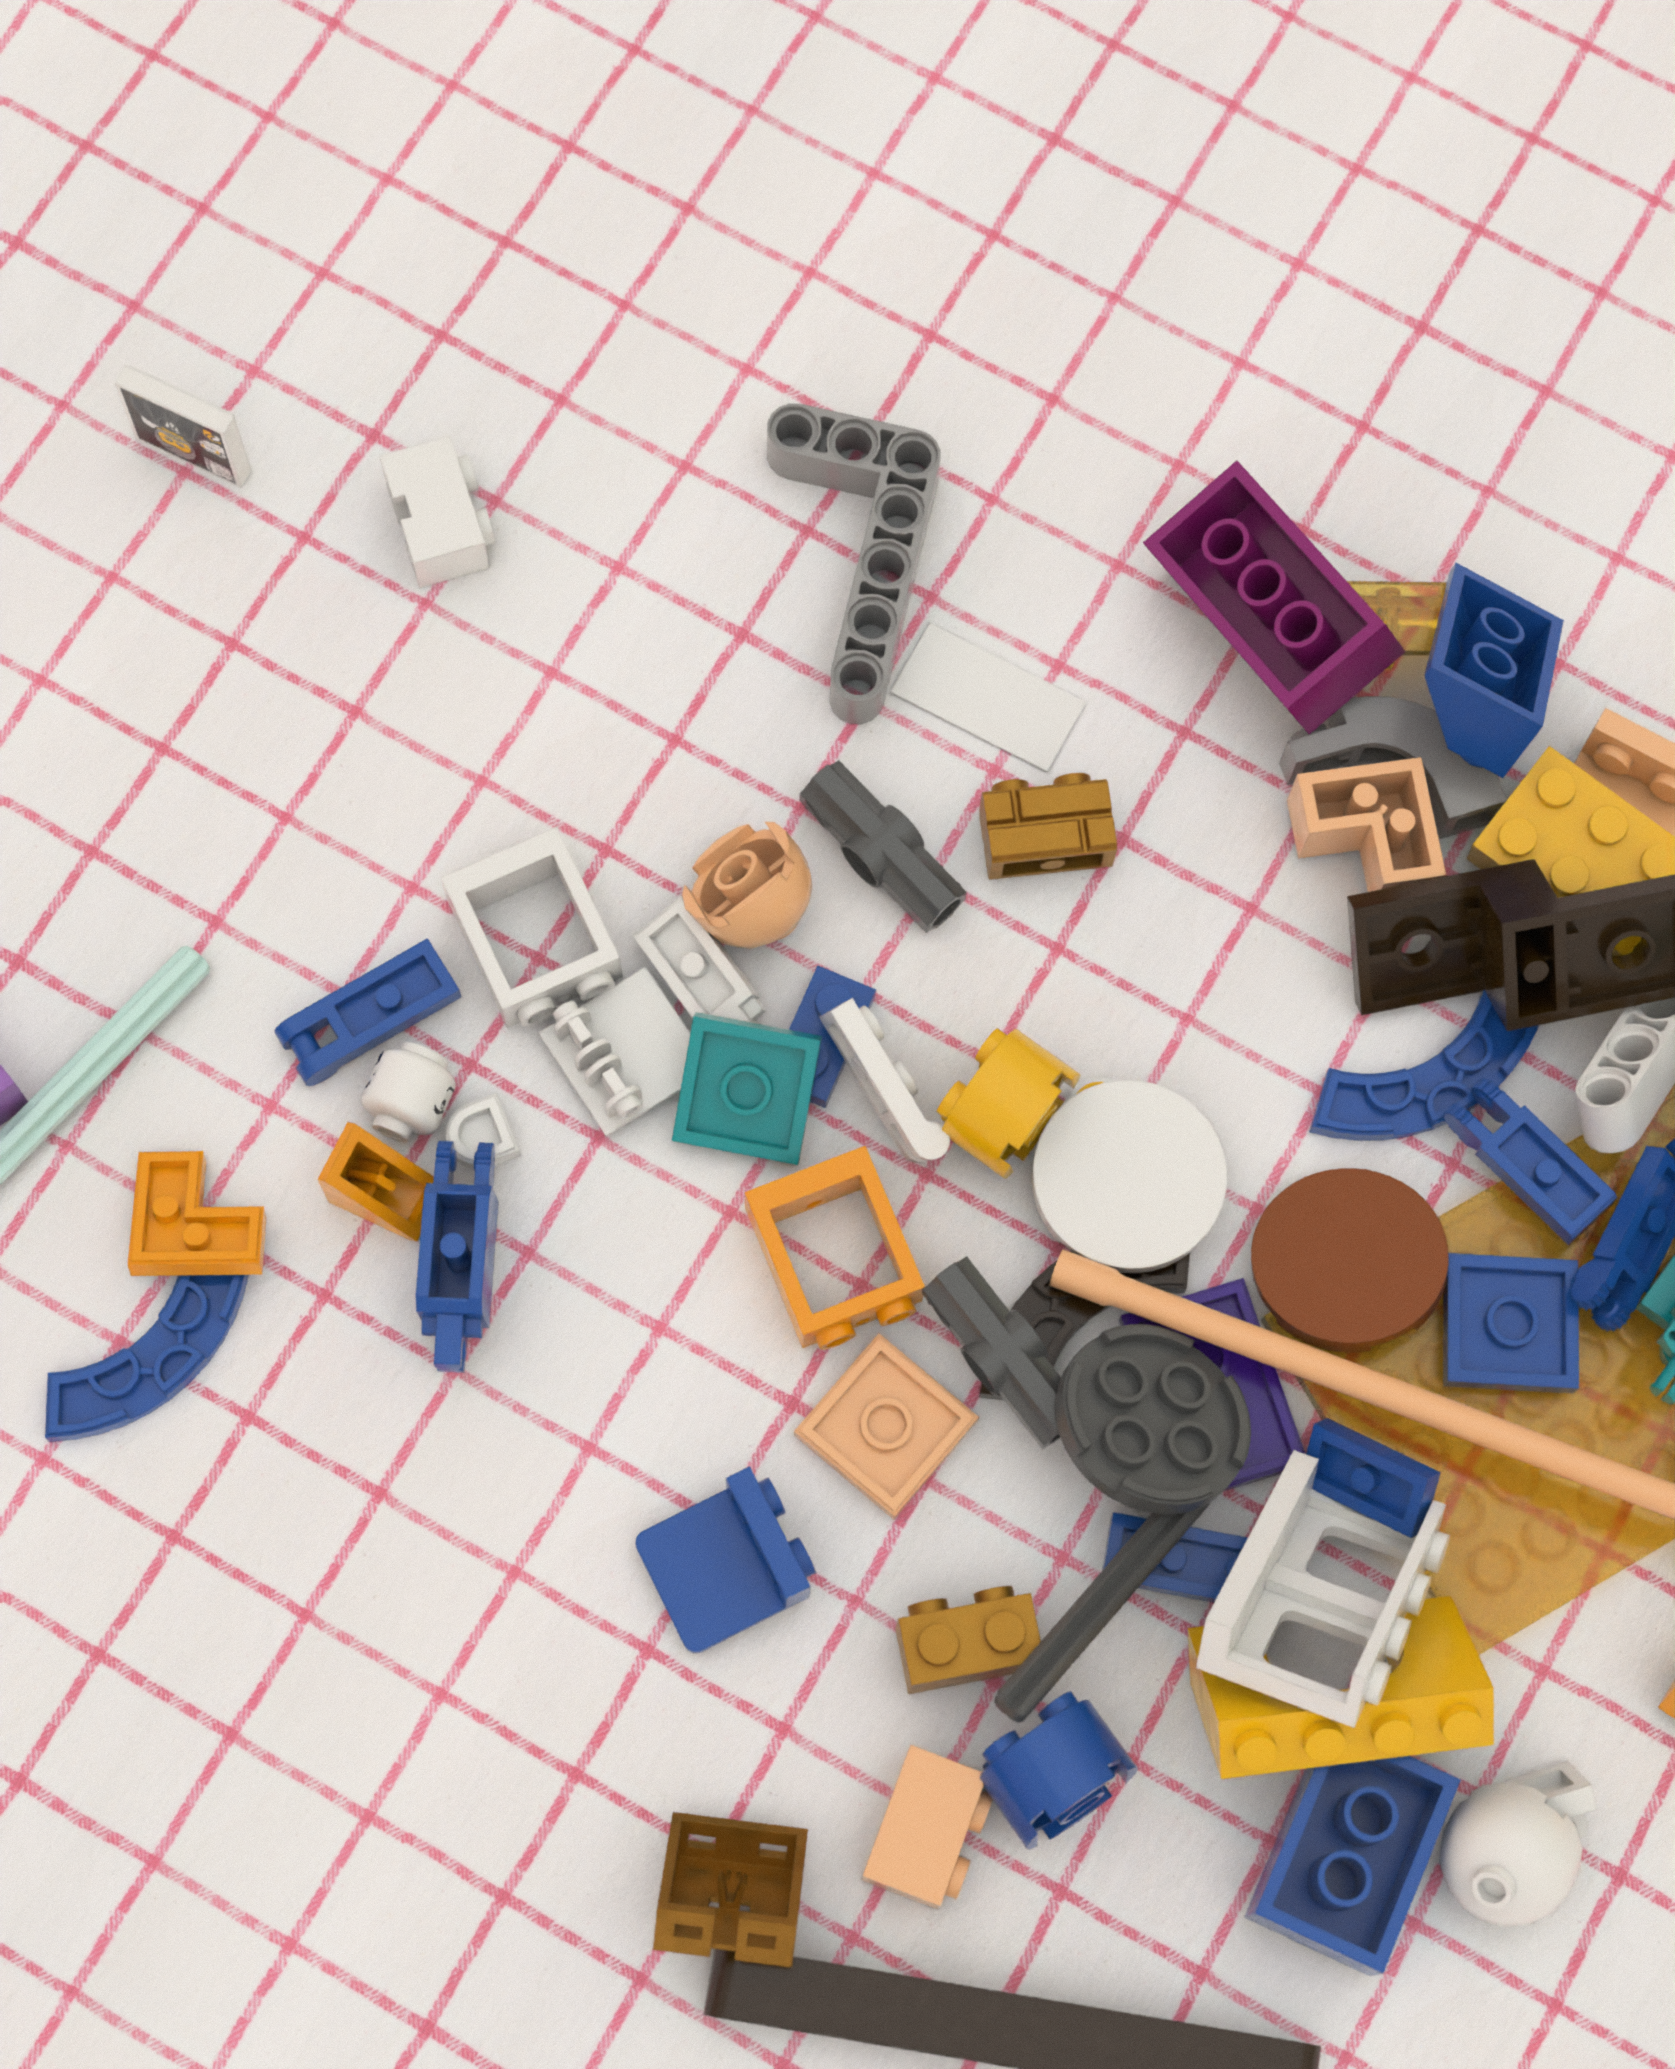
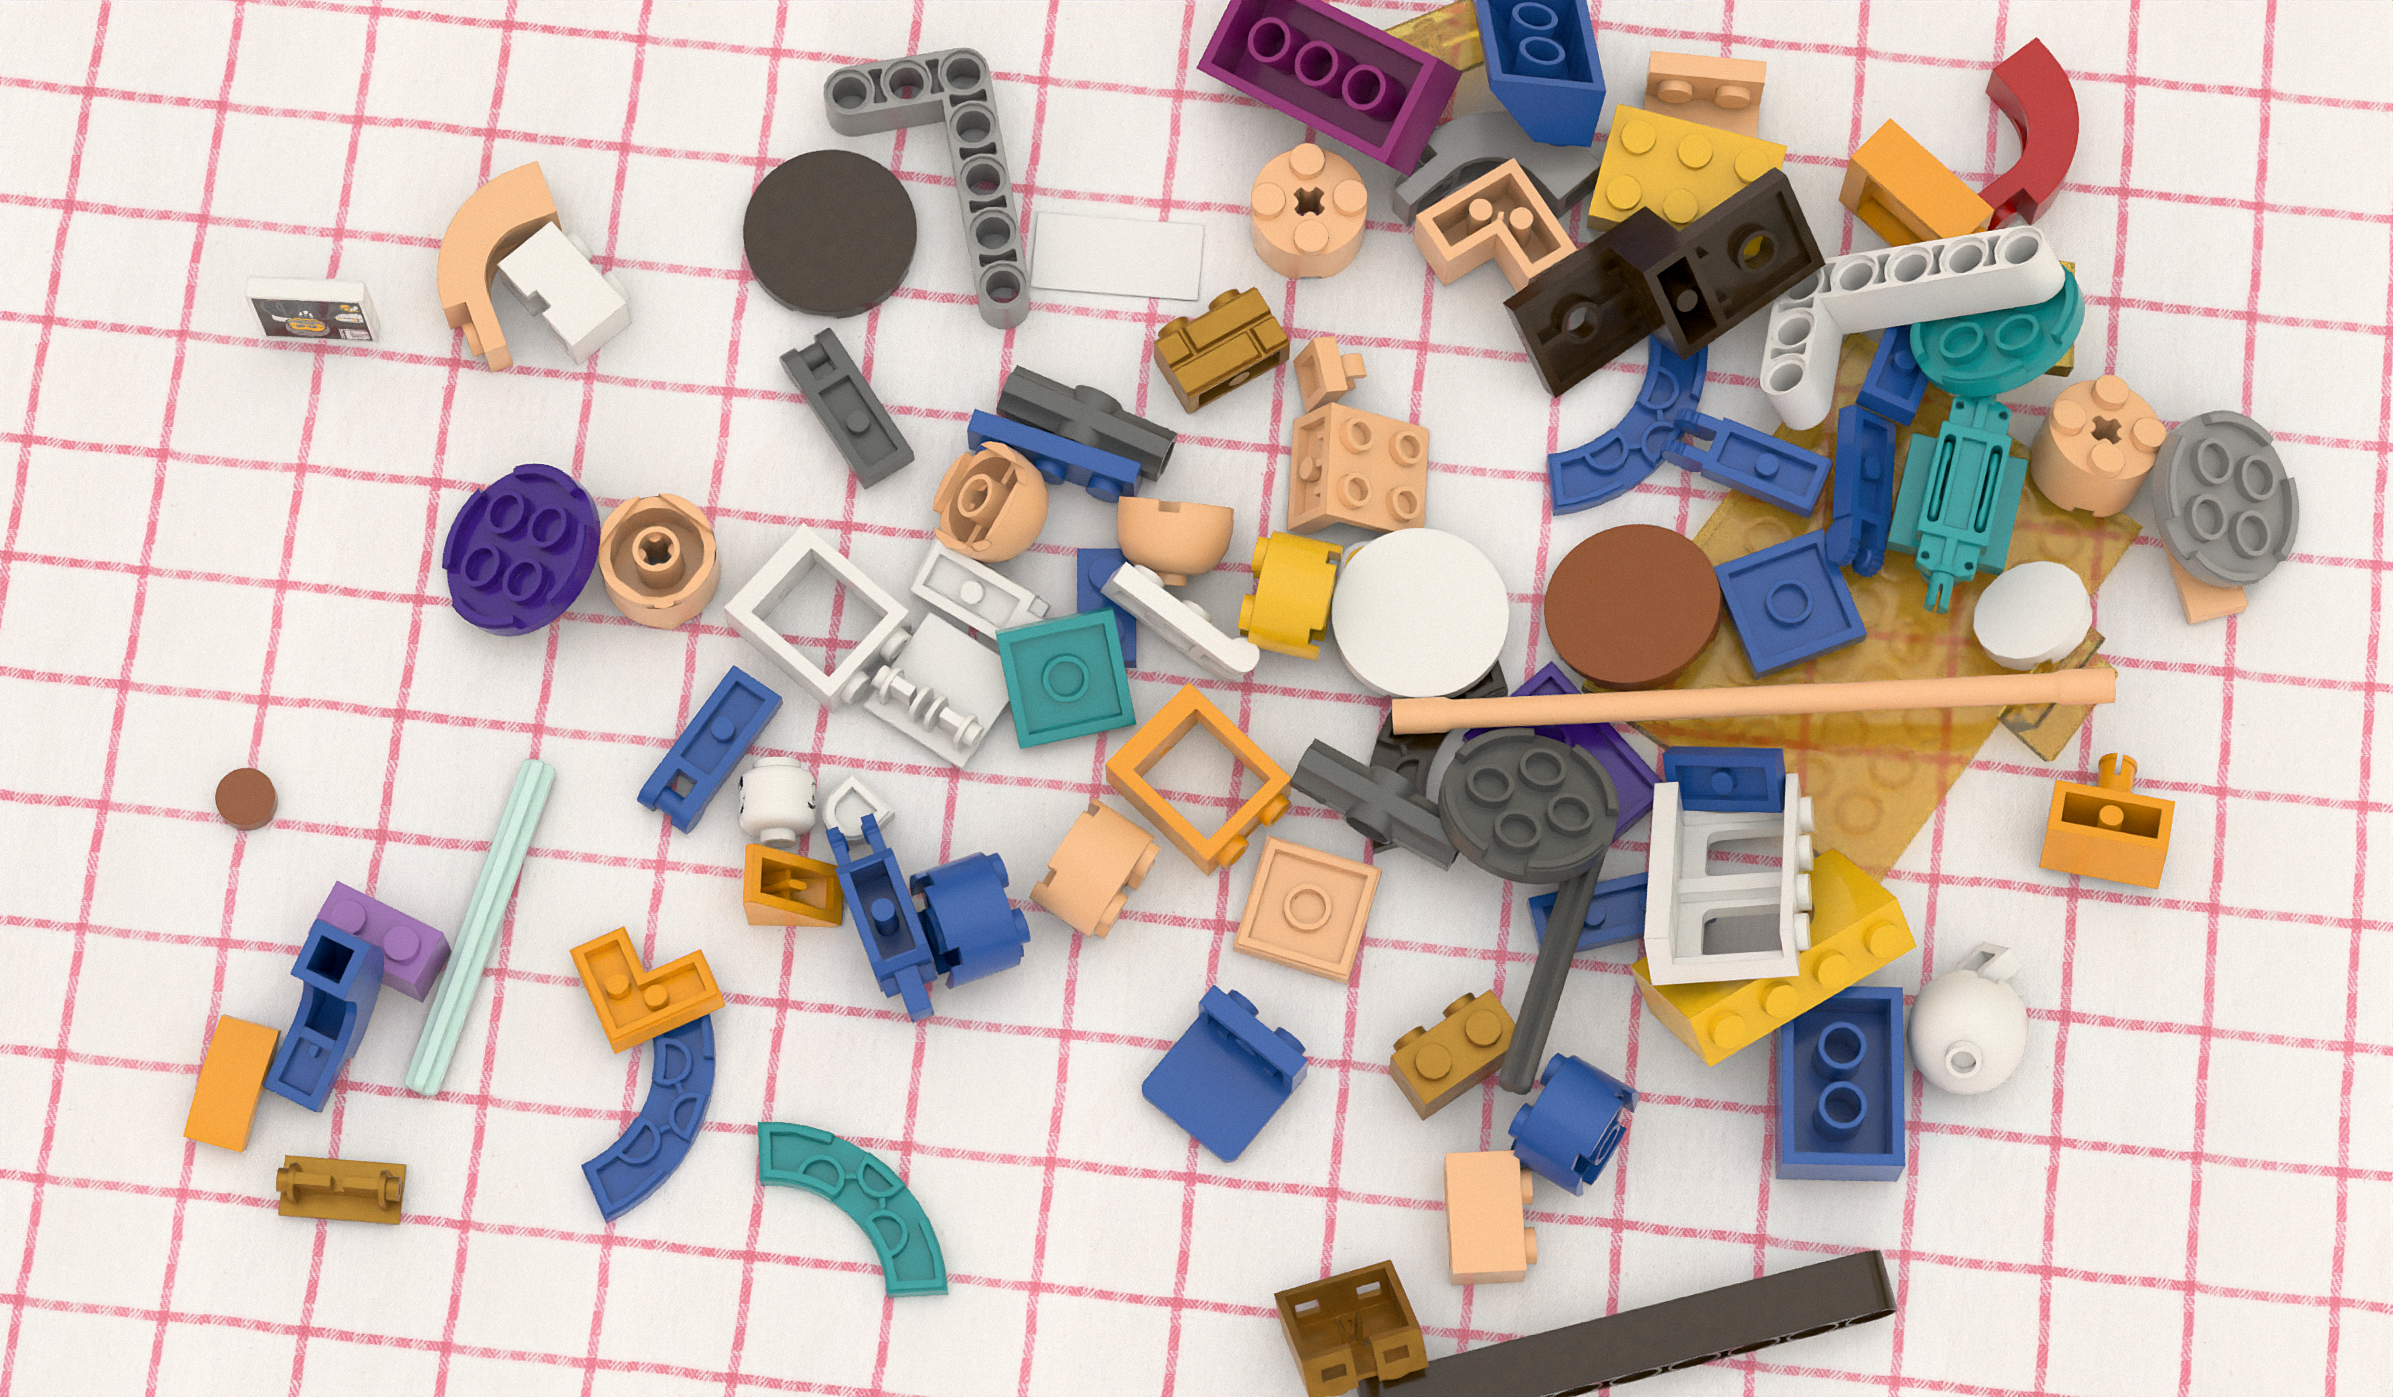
camera: 20 degrees left, 0 degrees up
(273, 740) = (522, 550): none -> dark purple tile
(318, 1526) = (866, 1192): none -> teal tile
(374, 423) = (478, 238): none -> light nougat arch
(410, 838) = (656, 528): none -> light nougat brick
(538, 1290) = (970, 918): none -> blue brick
(656, 737) = (848, 409): none -> dark grey plate
(686, 1294) = (1093, 868): none -> light nougat brick
(717, 560) = (830, 233): none -> dark brown tile
(839, 869) = (1059, 458): none -> blue plate
(915, 993) = (1173, 536): none -> light nougat cylinder
(1130, 1005) = (1356, 471): none -> light nougat bracket
(1140, 896) = (1325, 374): none -> light nougat tile
(1201, 698) = (1307, 182): none -> light nougat brick

